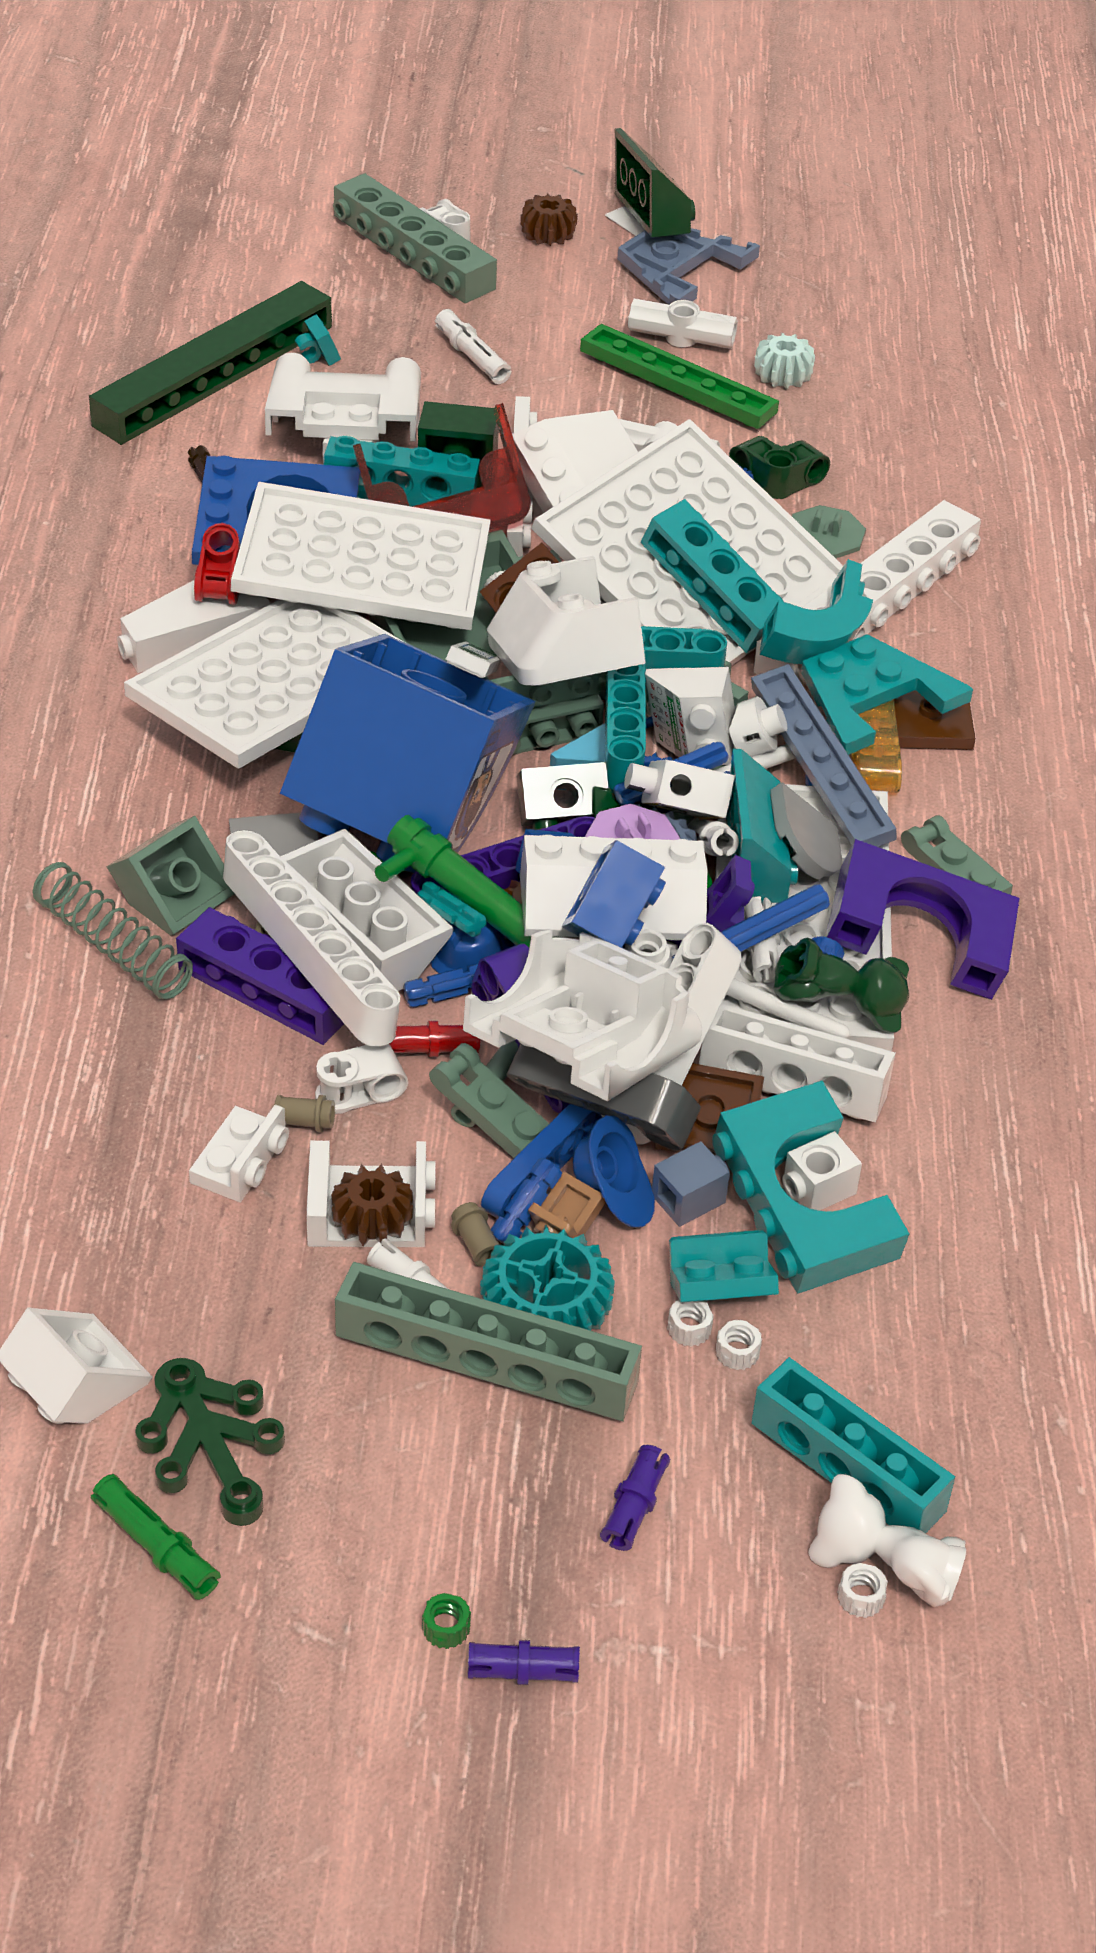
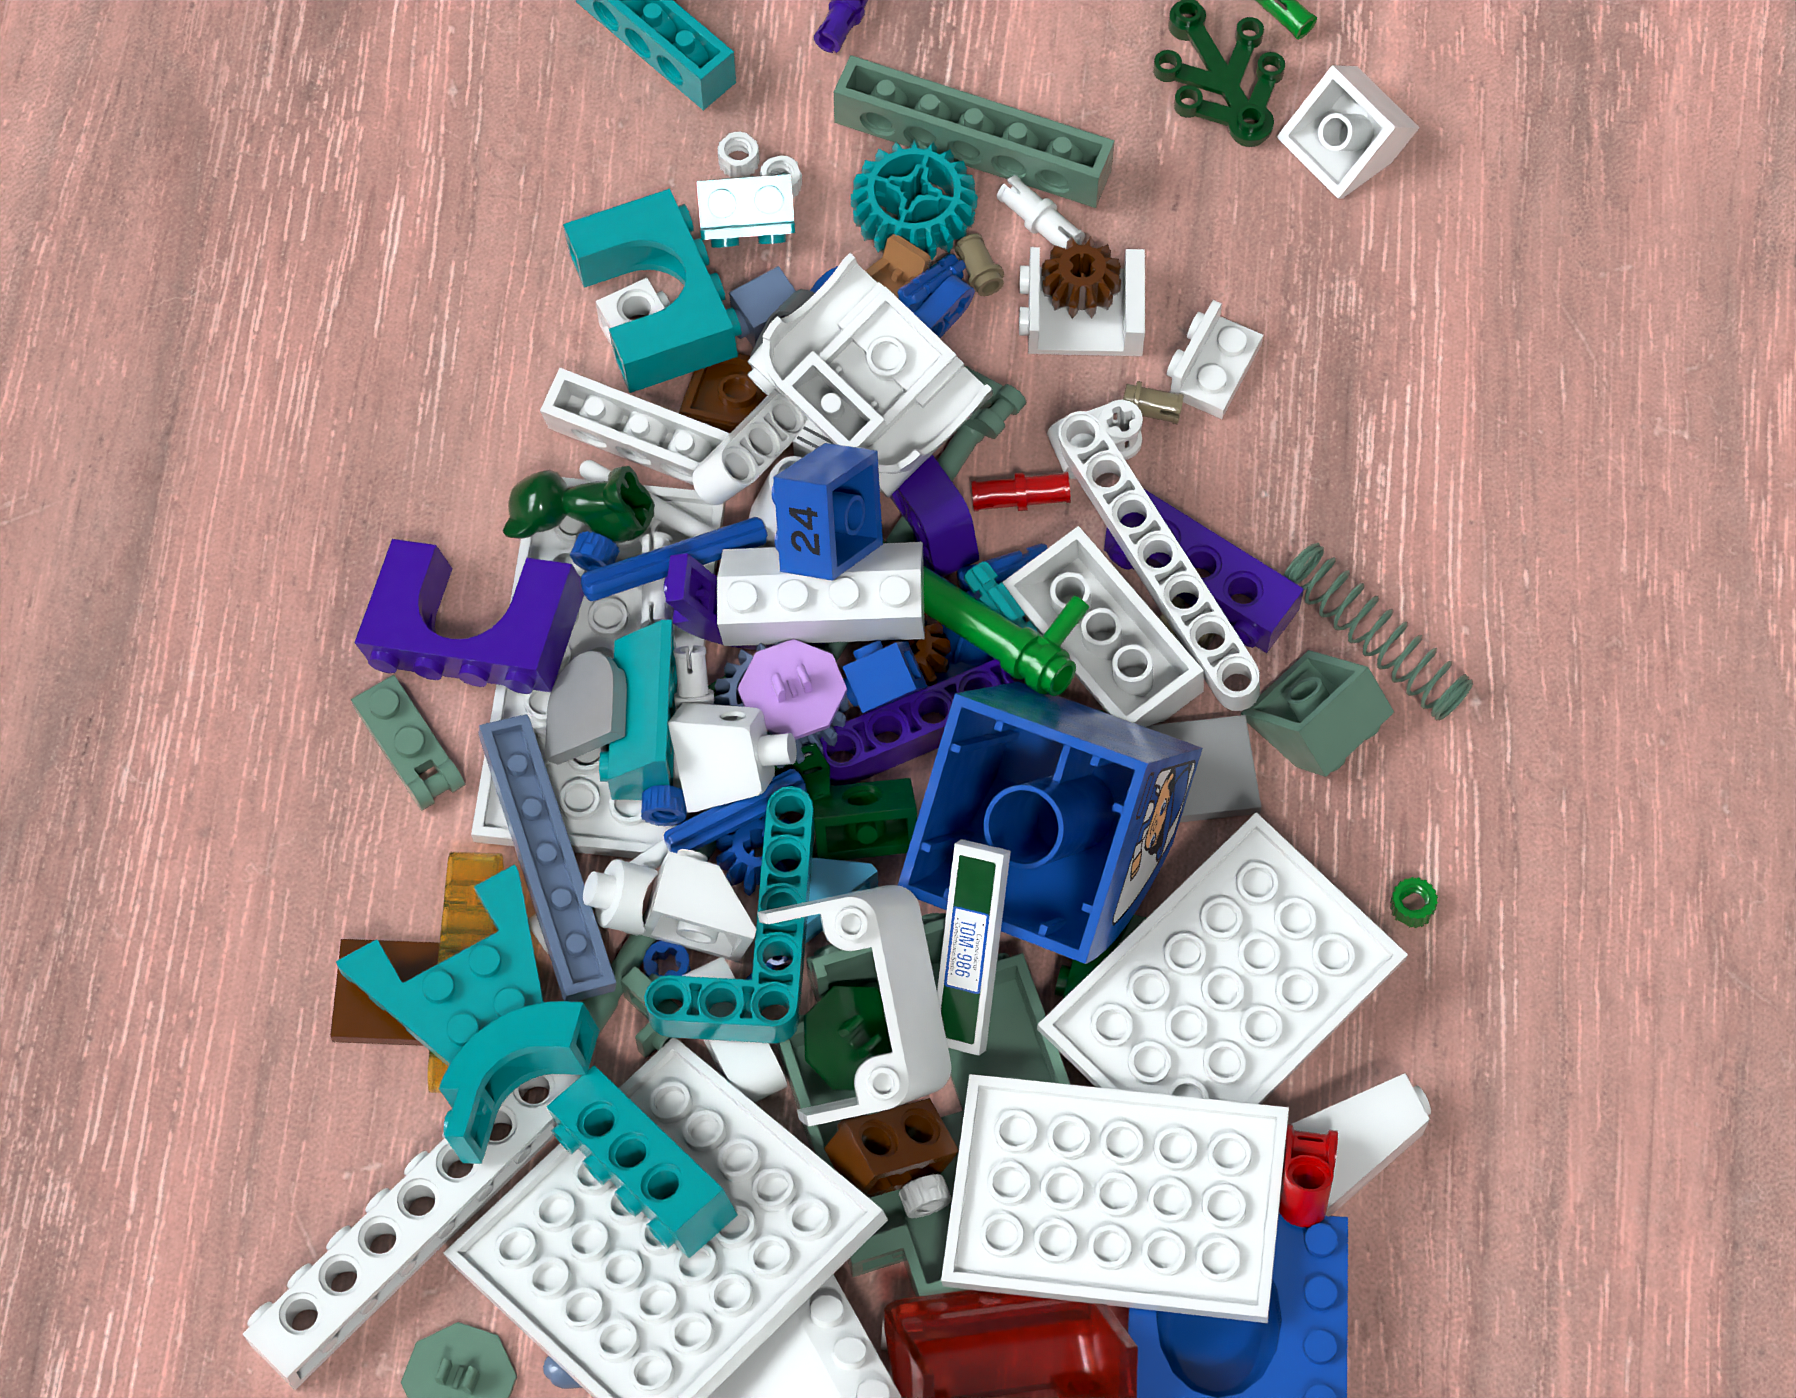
camera: 175 degrees left, 20 degrees up
(104, 759) = (1409, 917): none -> green axle

